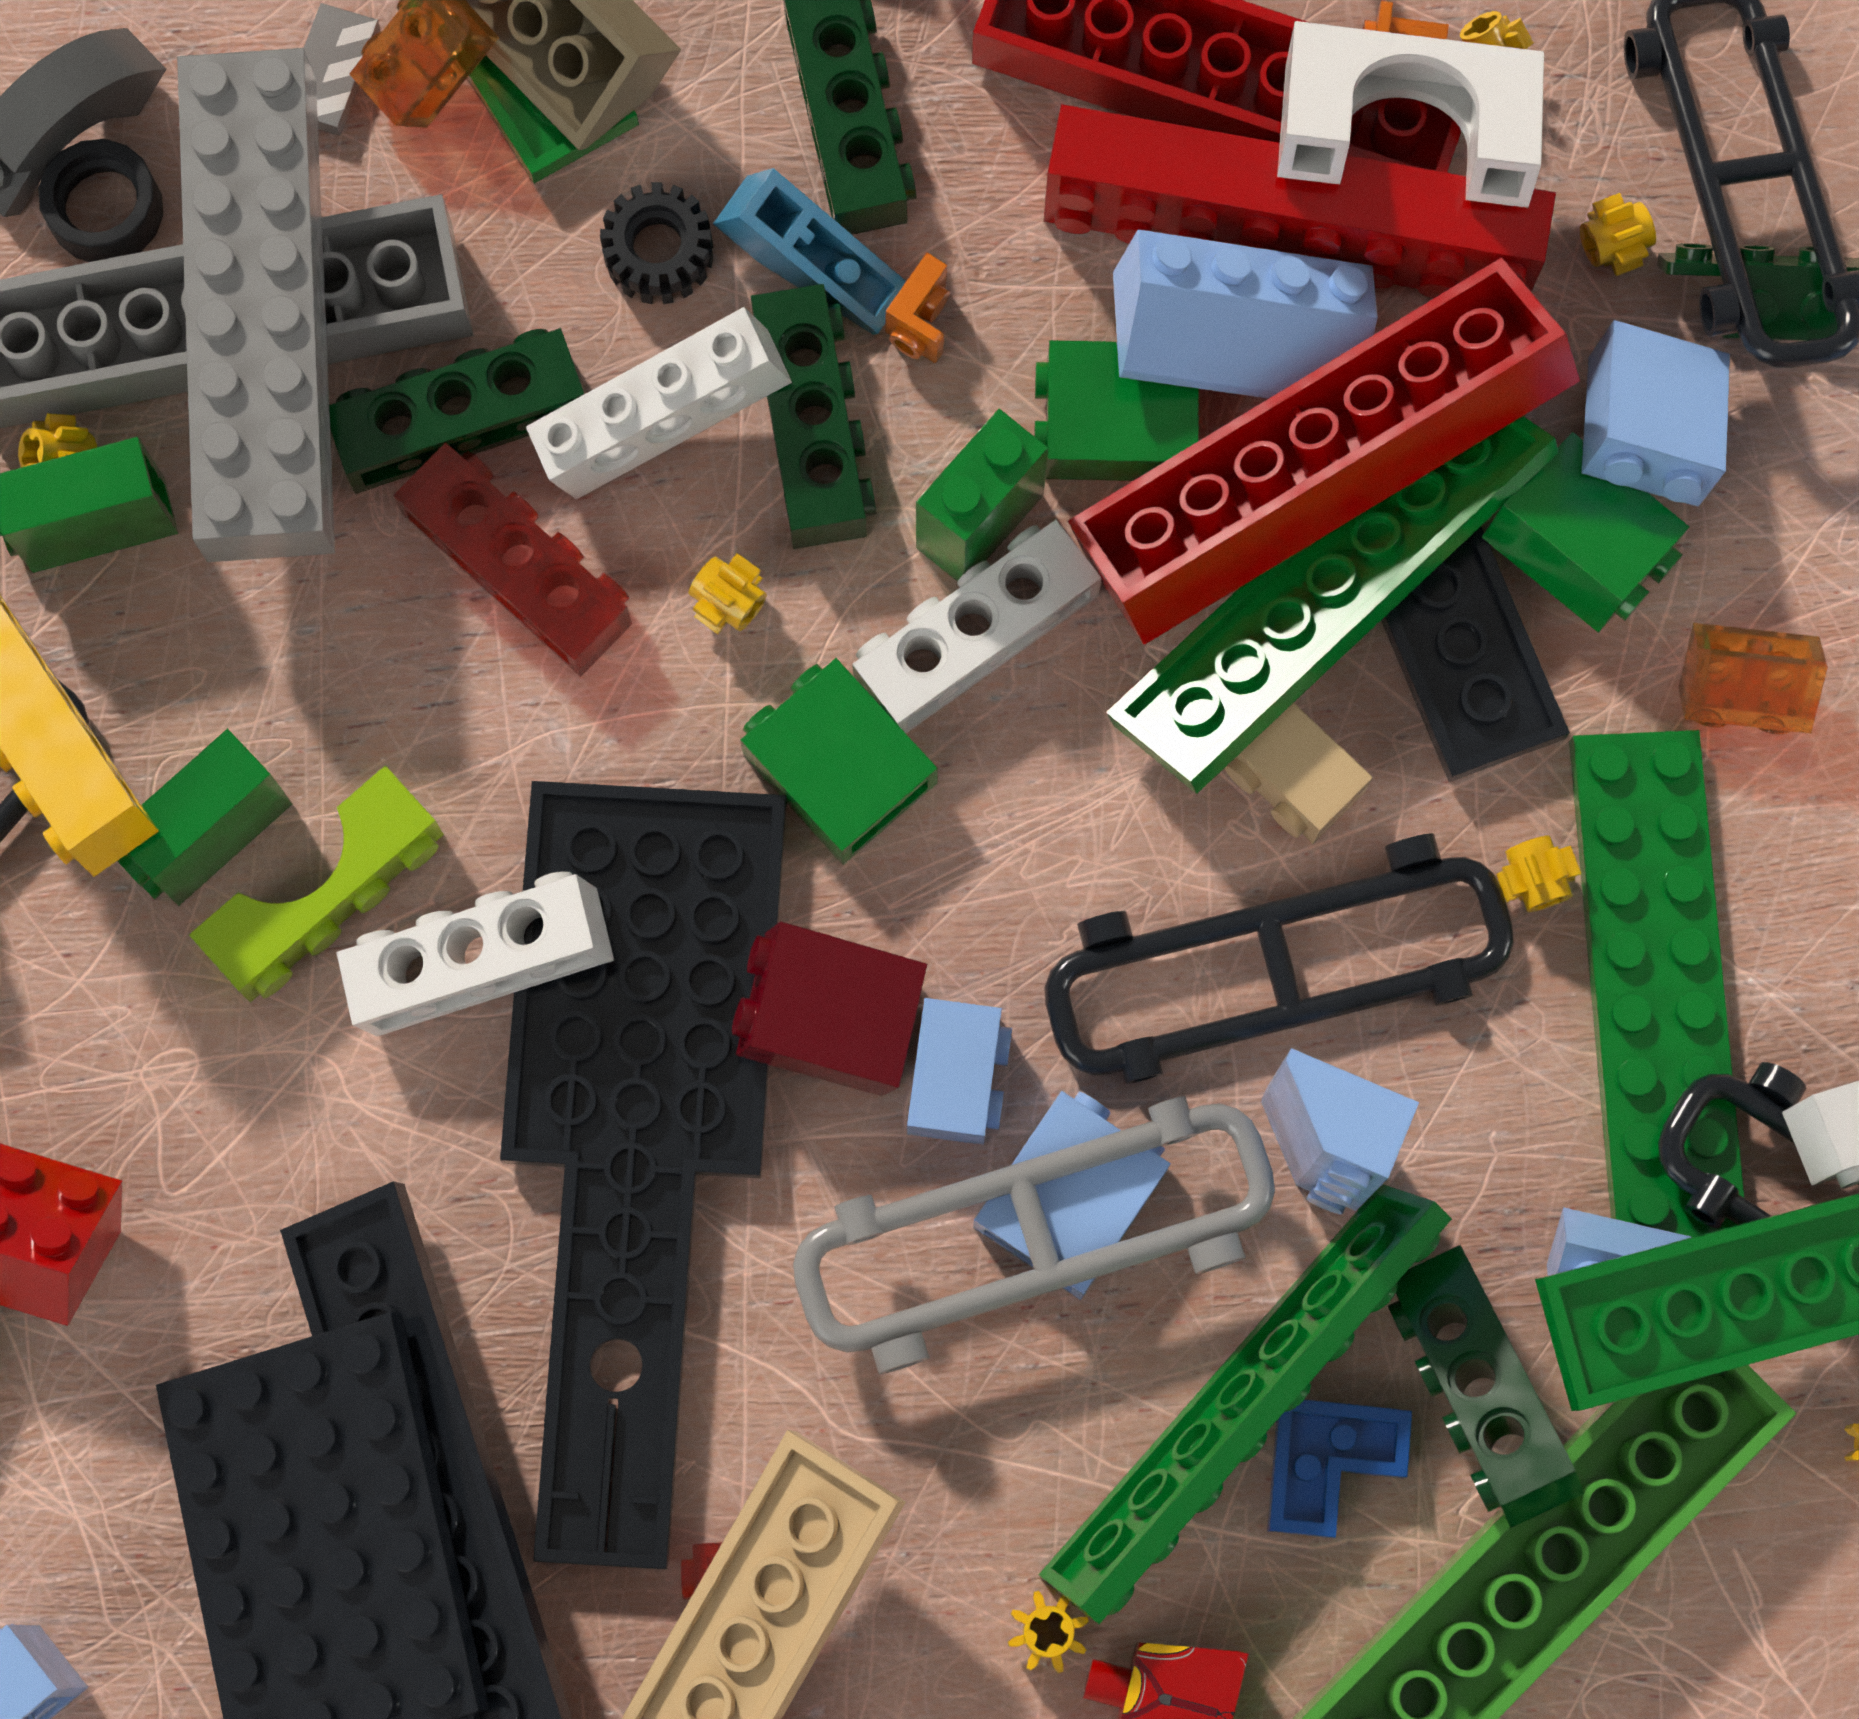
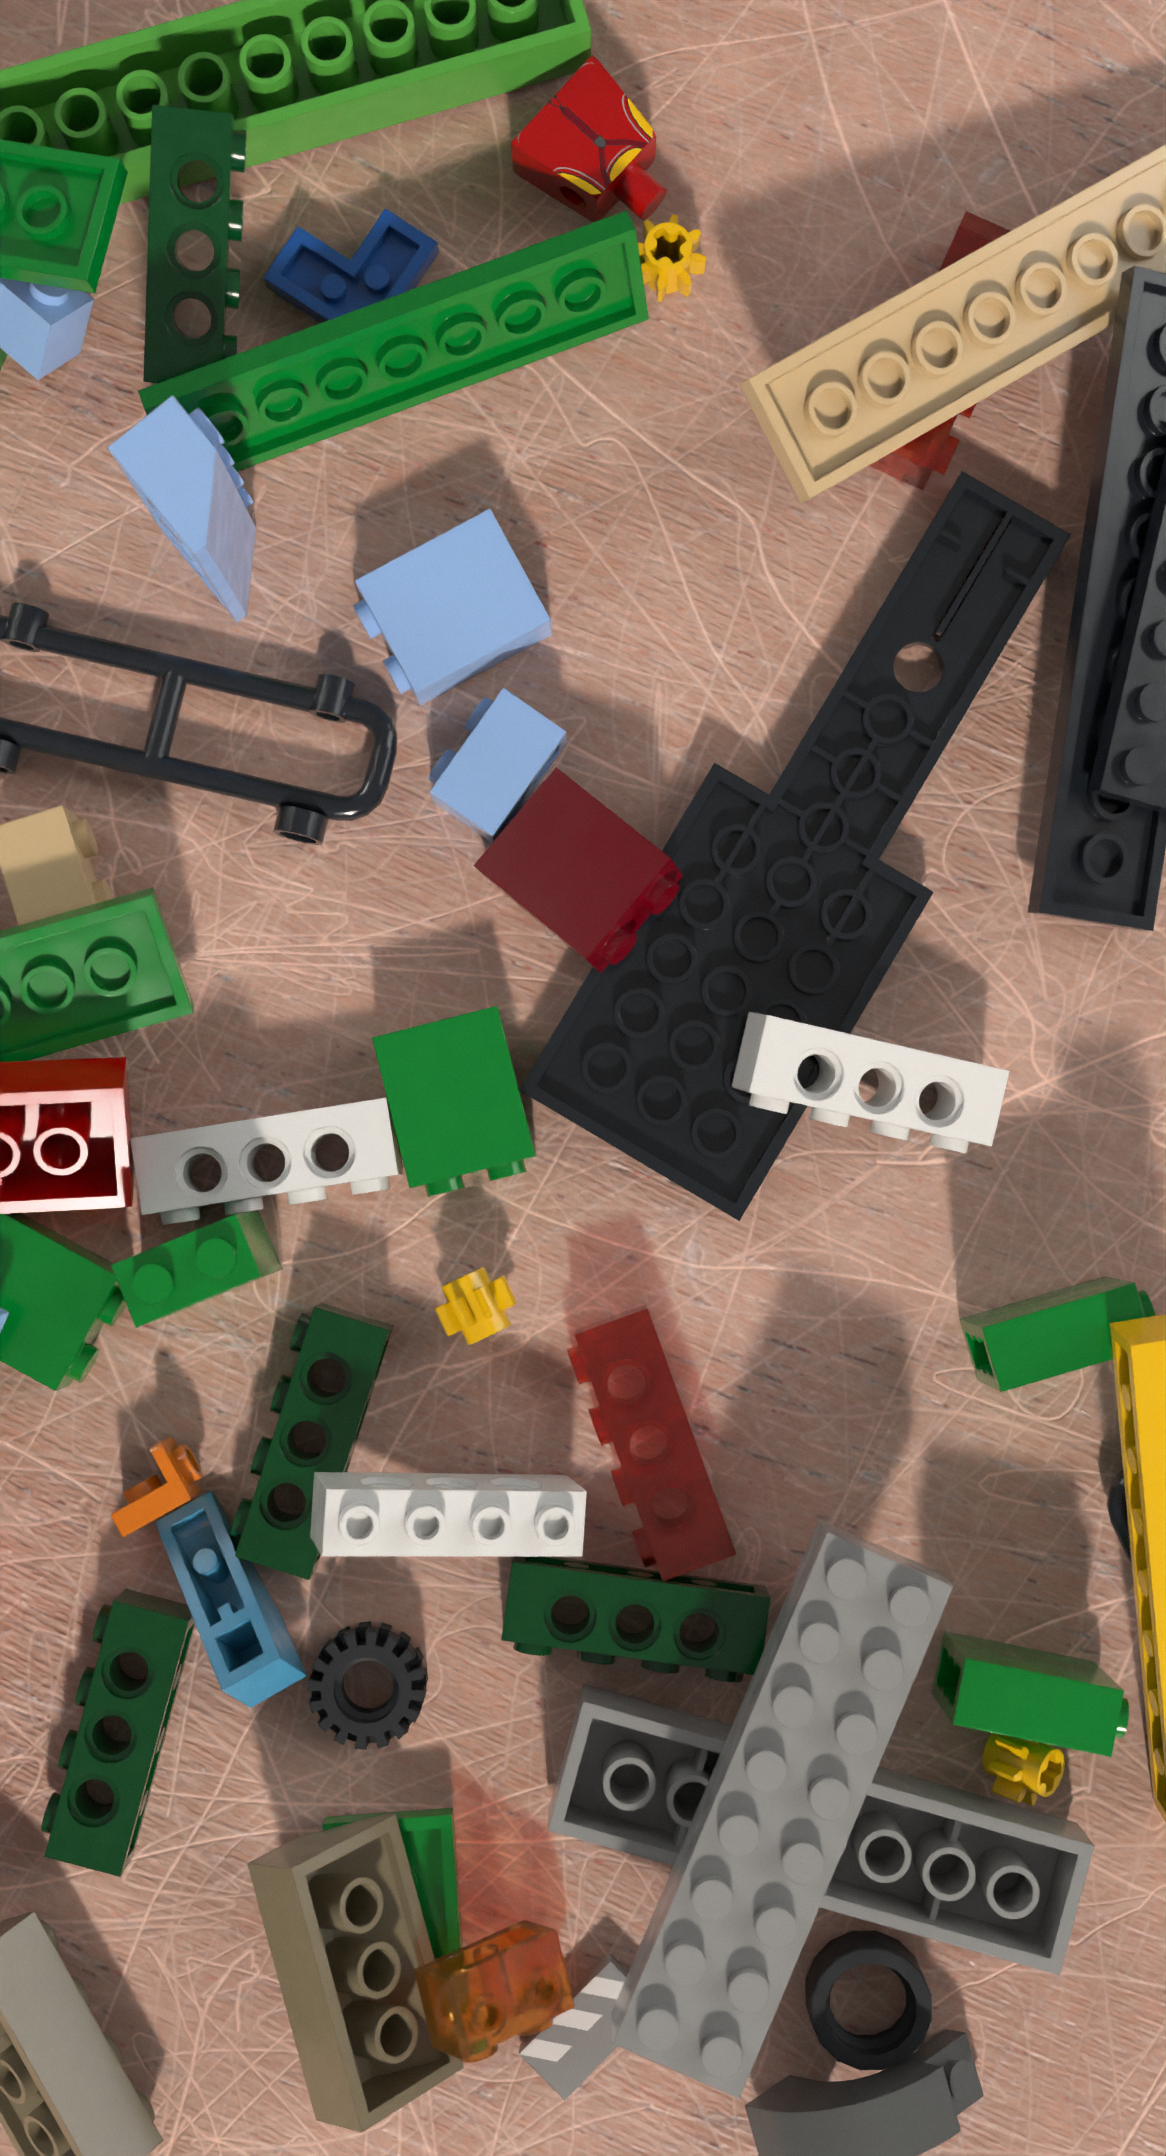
camera: 155 degrees left, 10 degrees up
(261, 940) = (1055, 1202): lime arch -> none
(898, 1337) = (357, 494): light grey bar -> none

